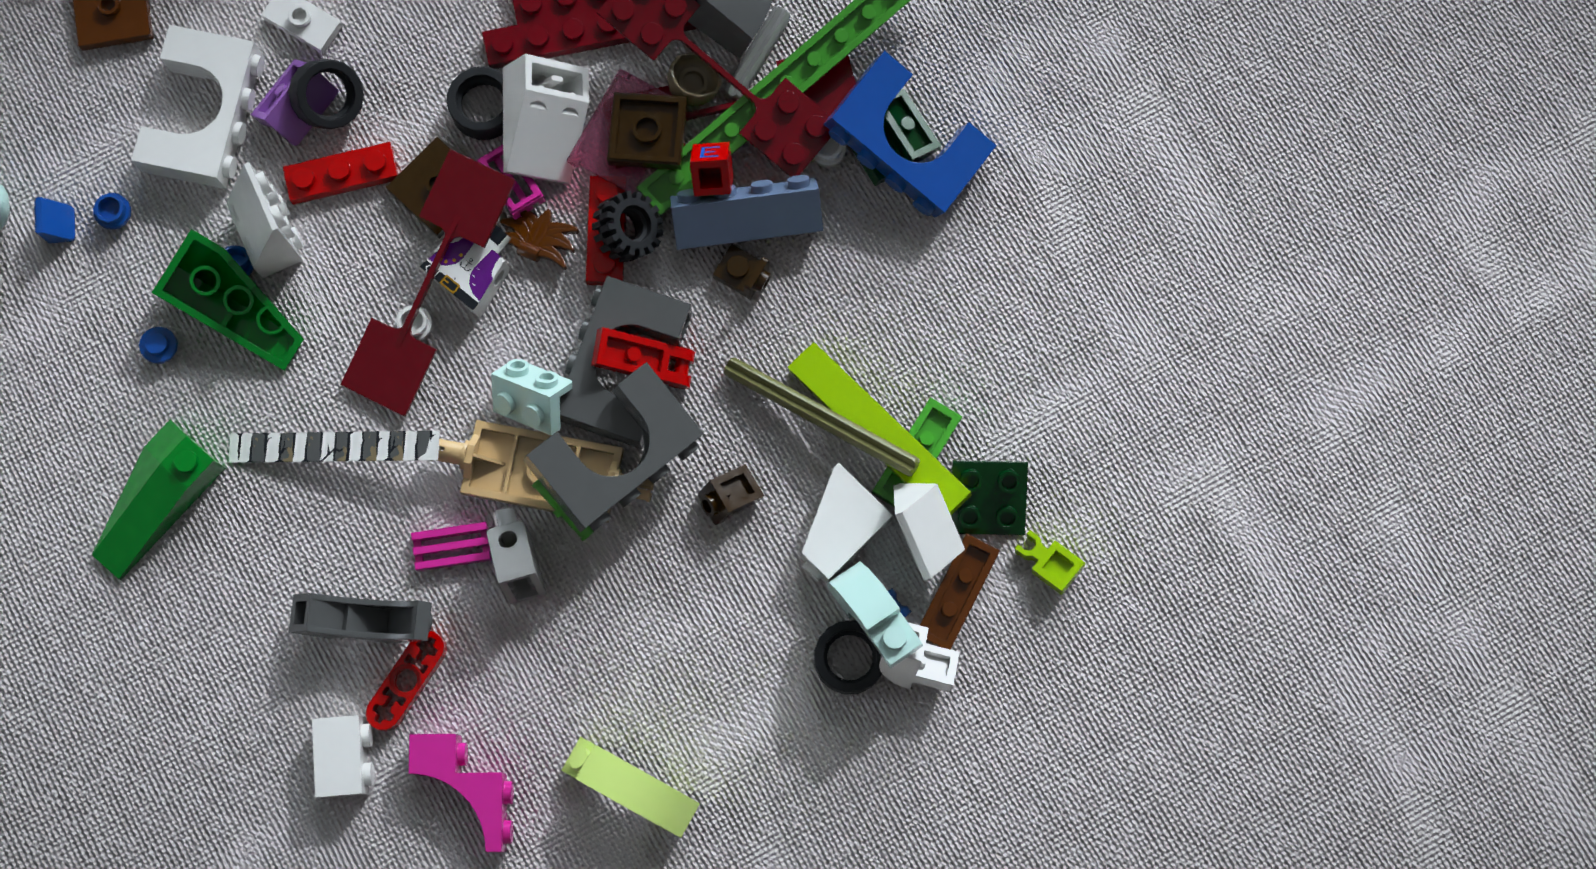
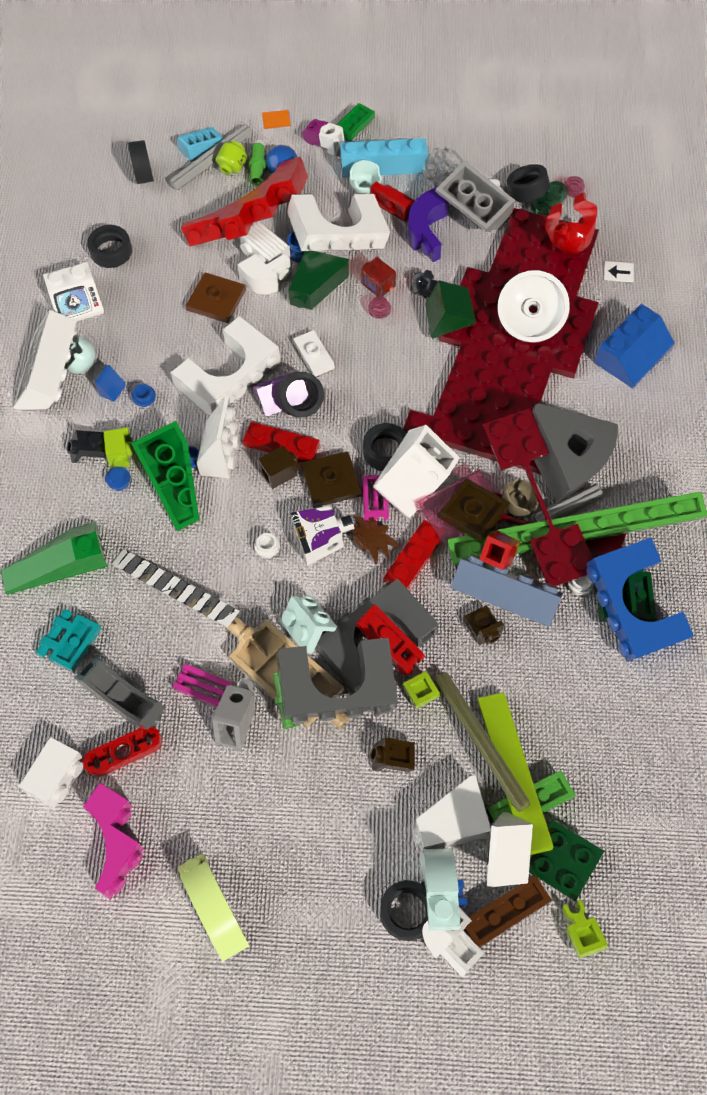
camera: 35 degrees right, 15 degrees down
(84, 324) = (86, 444): none -> black bracket
(131, 304) = (118, 447): none -> lime brick
(255, 590) = (73, 644): none -> teal plate
(361, 209) = (278, 466): none -> dark brown brick
(466, 205) = (241, 557): dark red hinge -> none
(612, 234) = (440, 558): black tyre -> none
(715, 396) = (421, 690): none -> lime plate

